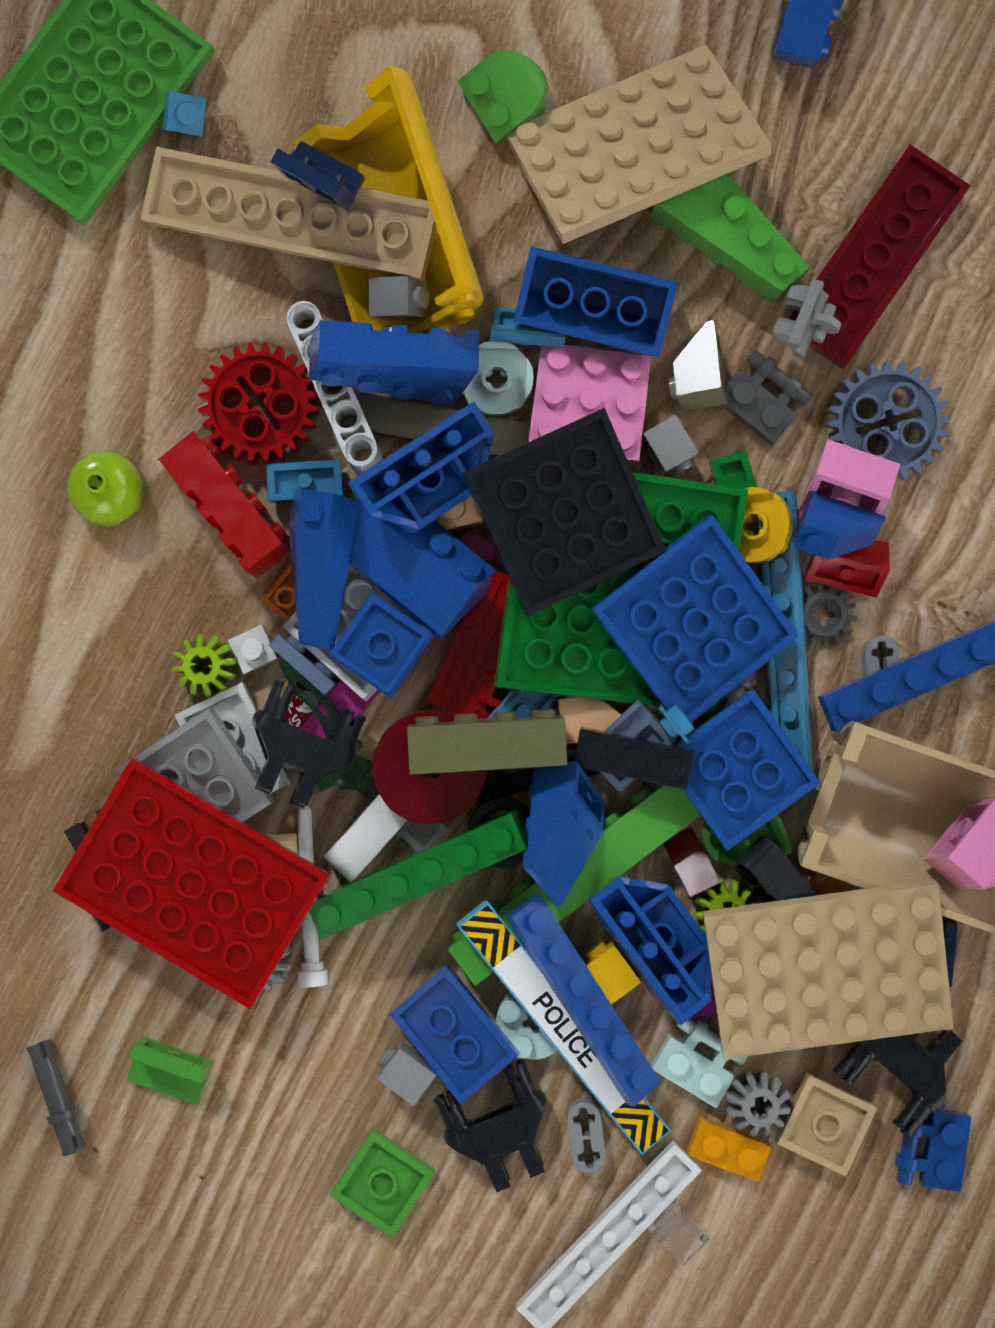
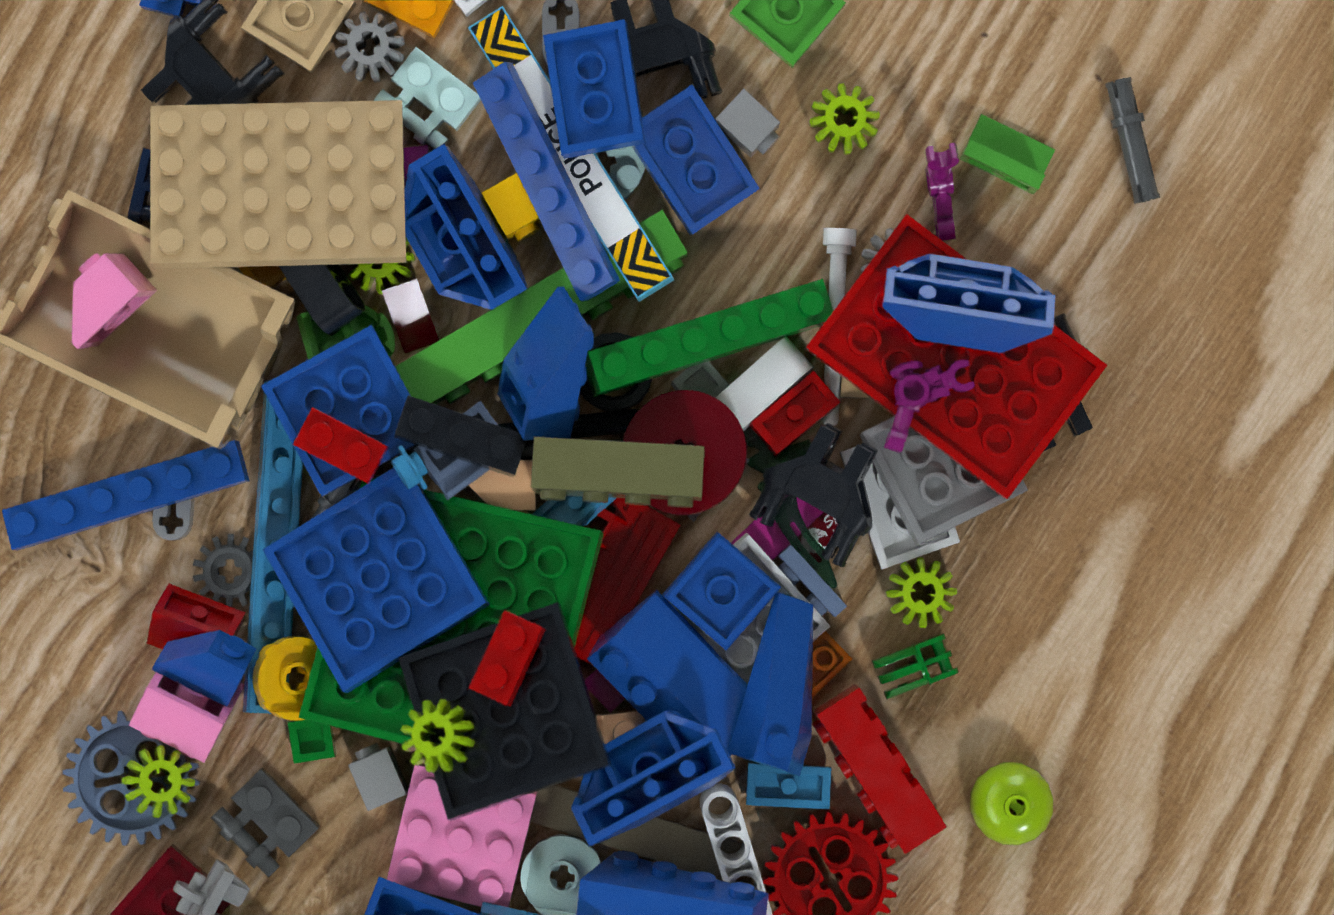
camera: 175 degrees left, 0 degrees up
(180, 933) = (968, 303): none -> blue wedge
(201, 600) = (918, 665): none -> green arm
(223, 847) = (915, 391): none -> magenta piece
(225, 1038) = (940, 186): none -> magenta piece
(252, 649) = (866, 605): white plate -> none
(316, 1074) = (842, 133): none -> lime gear
(334, 813) = (795, 413): none -> red plate
(549, 1091) = (594, 89): none -> blue plate
(567, 559) = (507, 658): none -> red plate
(623, 465) = (424, 725): none -> lime gear
(700, 372) = (333, 857): slope -> none
(742, 737) = (340, 445): none -> red plate
(879, 413) = (172, 779): none -> lime gear

